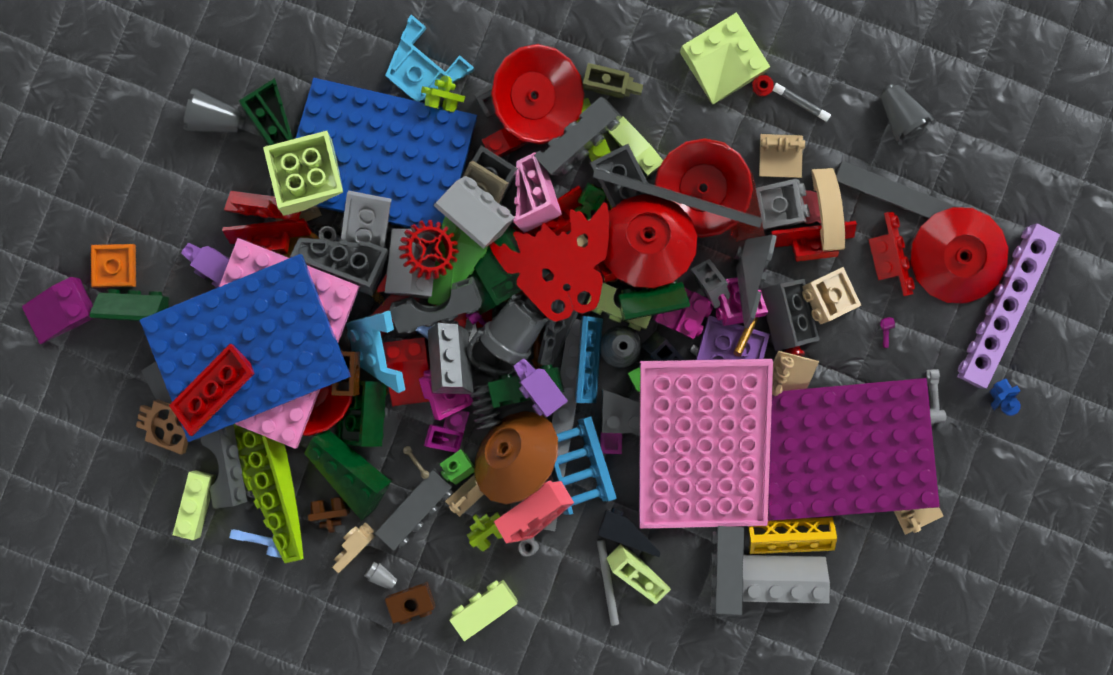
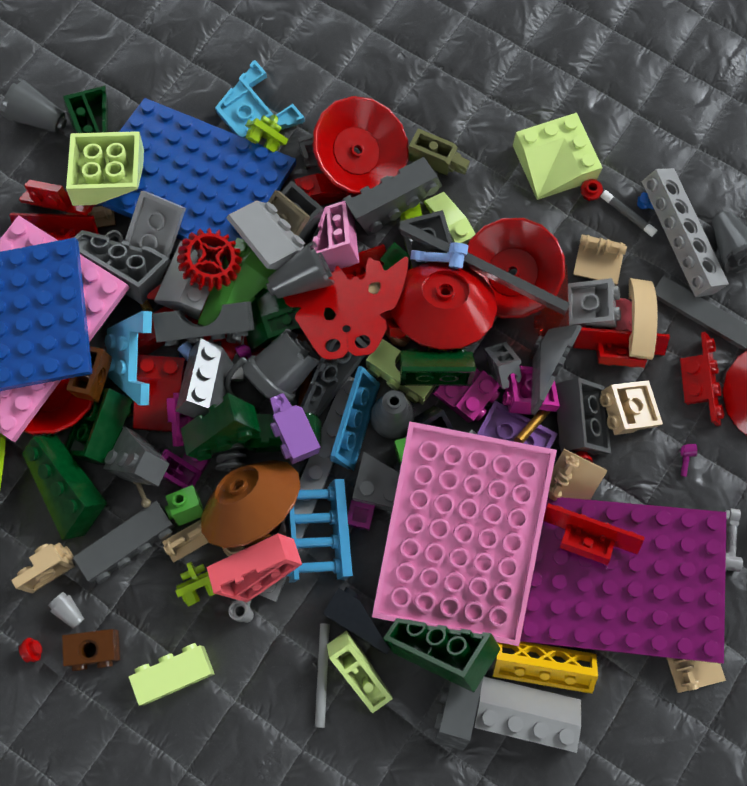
camera: 10 degrees right, 15 degrees down
(338, 509) = (20, 524): reddish brown hips -> none
(359, 614) = (30, 650): none -> red plate
(406, 438) = (135, 459): none -> dark grey wedge
(476, 402) = (220, 428): none -> dark green wedge
(514, 243) = (300, 274): none -> dark grey cone
(650, 196) = (454, 257): none -> light blue brick
(714, 549) = (447, 652): none -> dark green wedge
(813, 425) = (589, 536): none -> red bracket
(814, 88) = (644, 202): none -> blue hand
(856, 114) = (684, 232): none -> light grey brick

